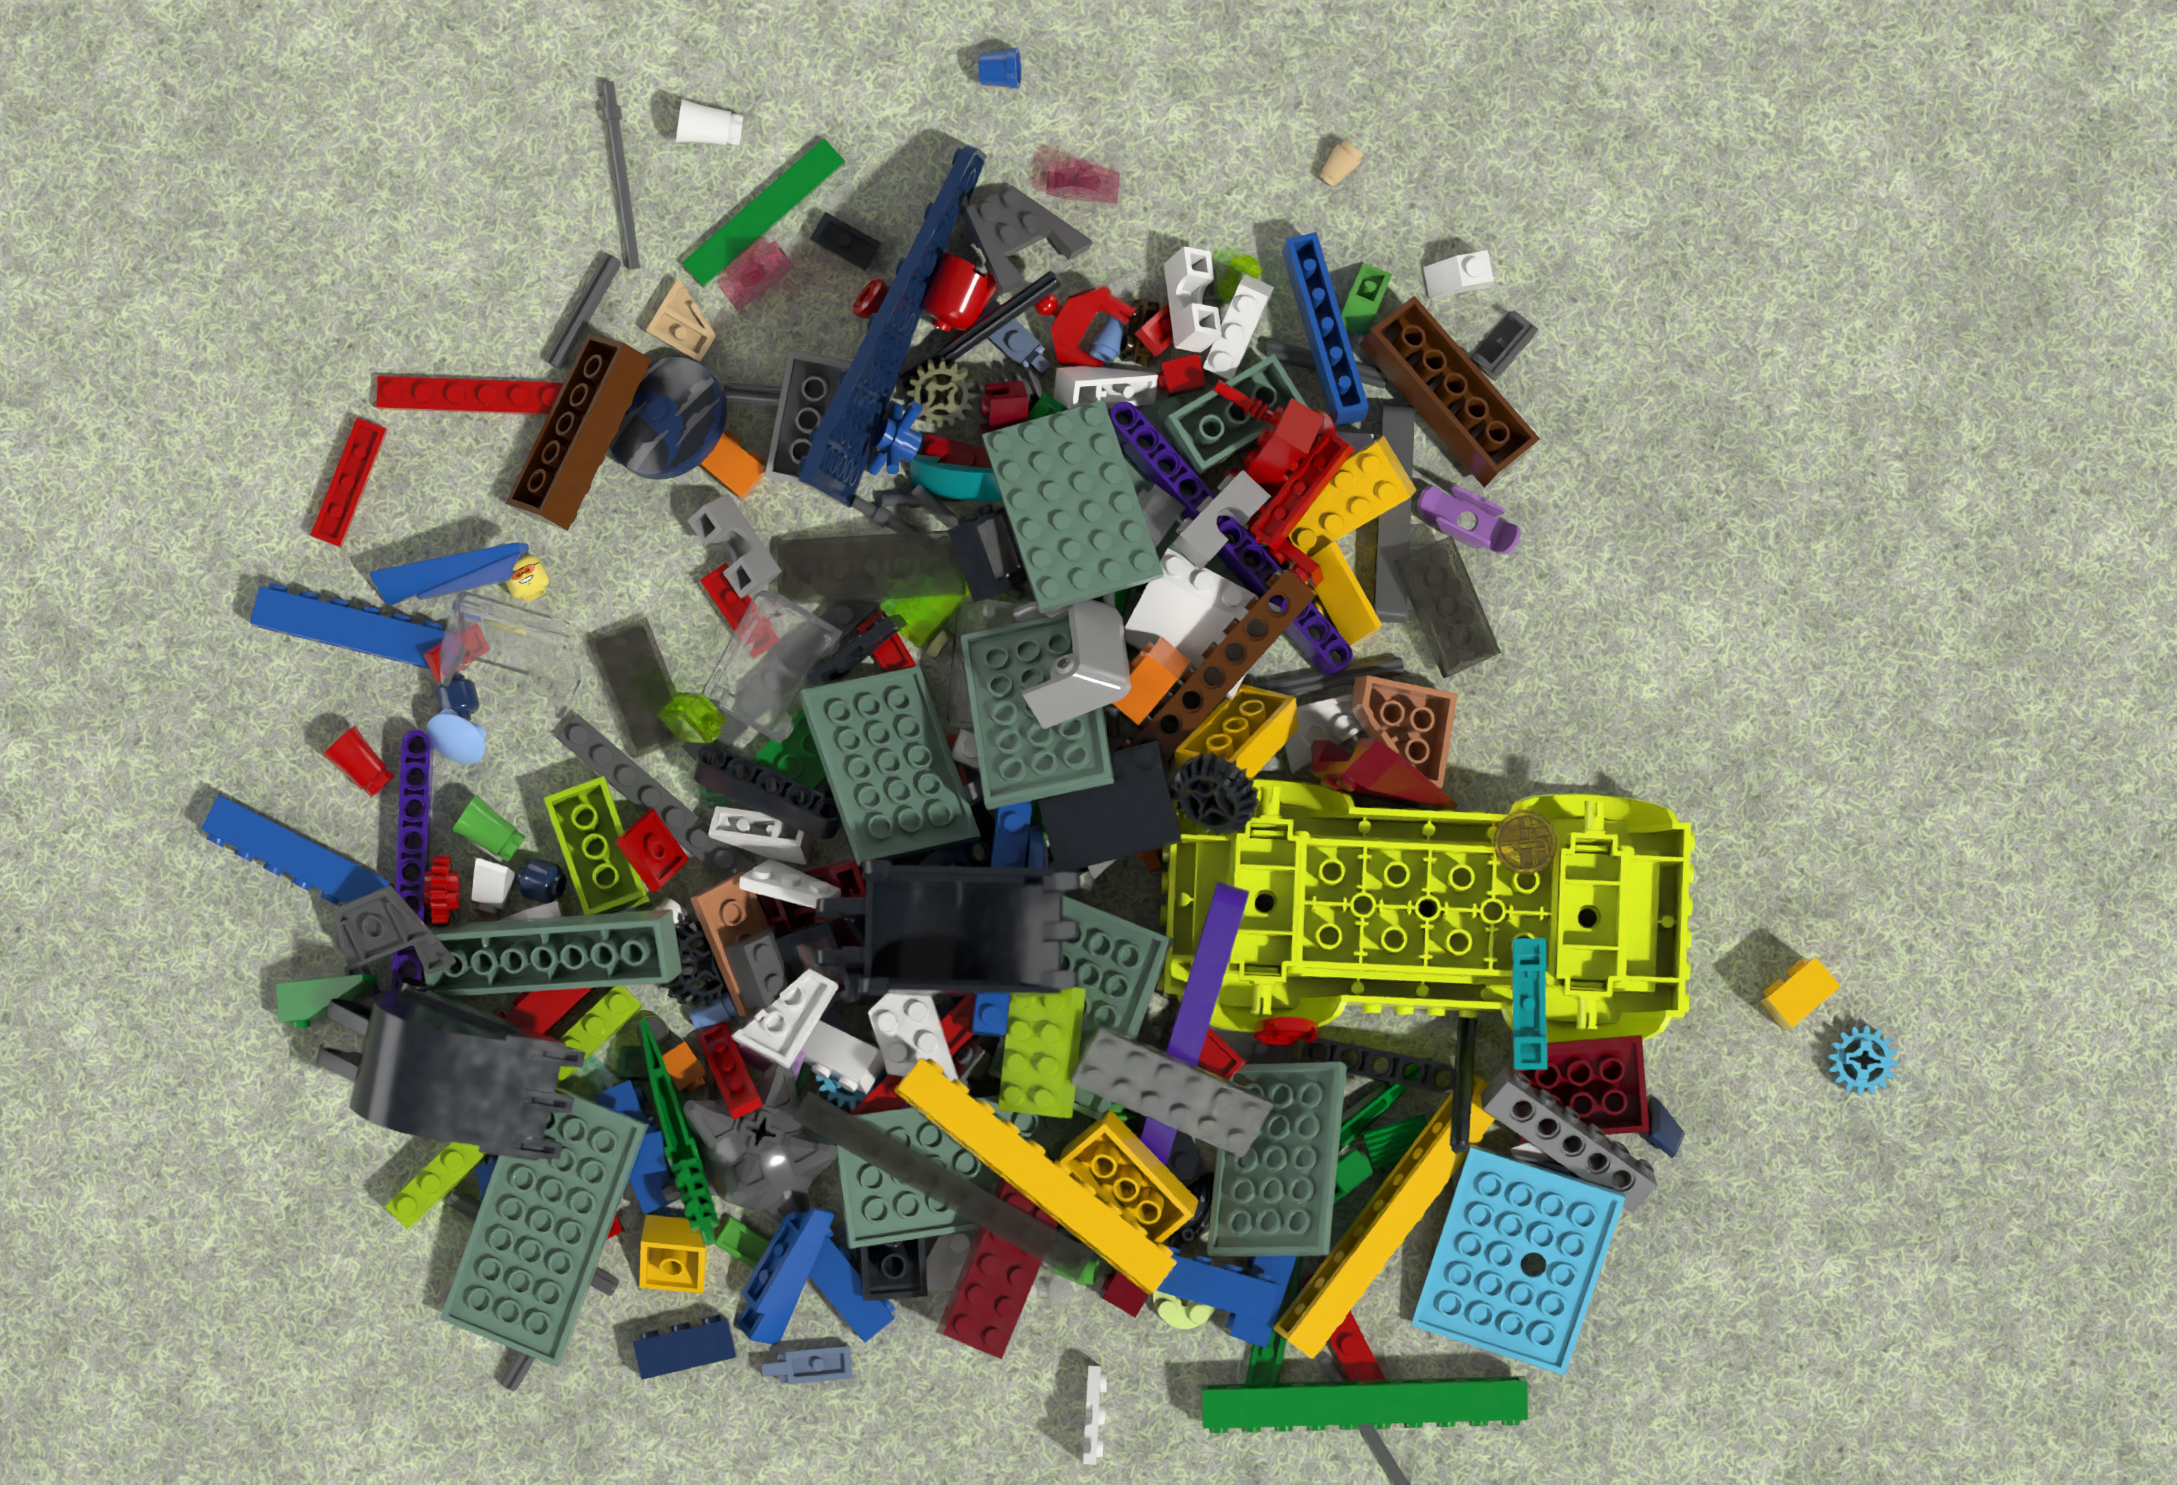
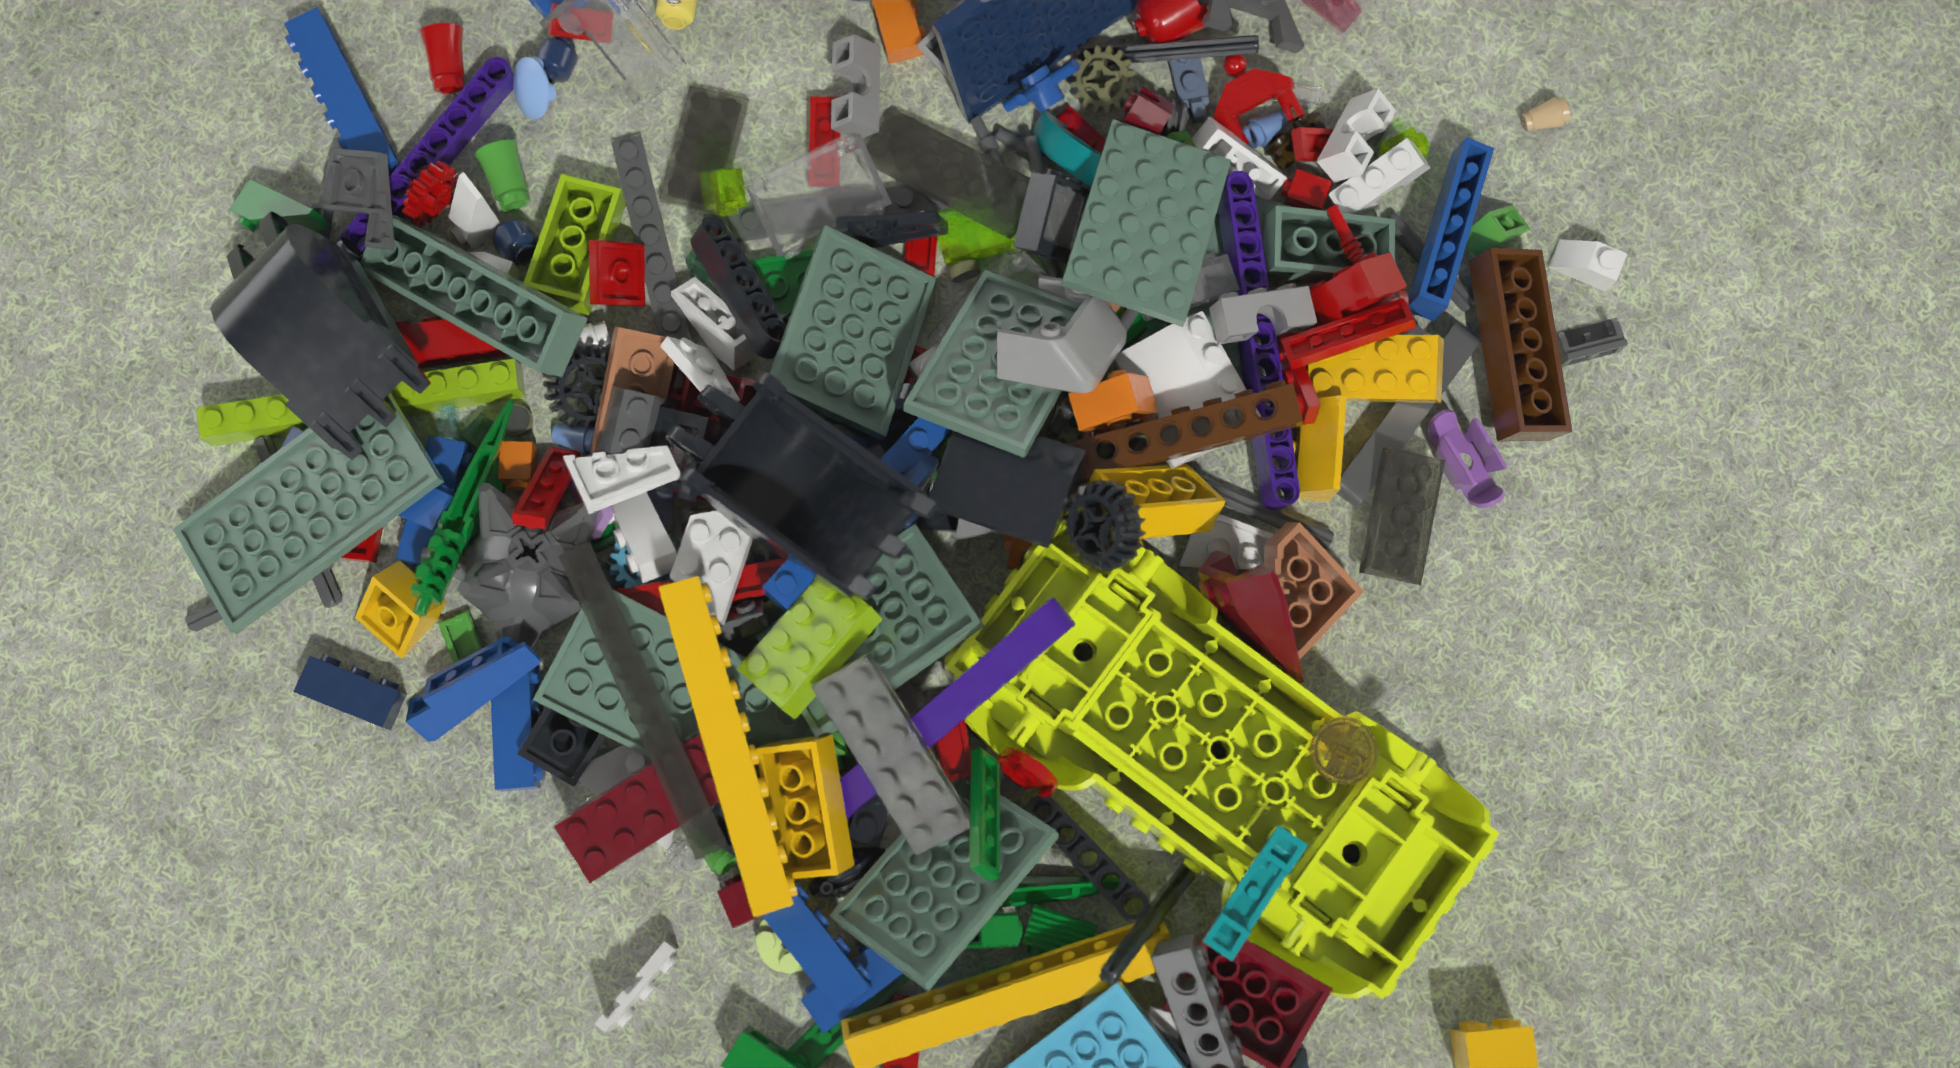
camera: 35 degrees right, 5 degrees down
(811, 1365) = (441, 779): sand blue hinge -> none
(1275, 1087) = (985, 815): none -> green tile

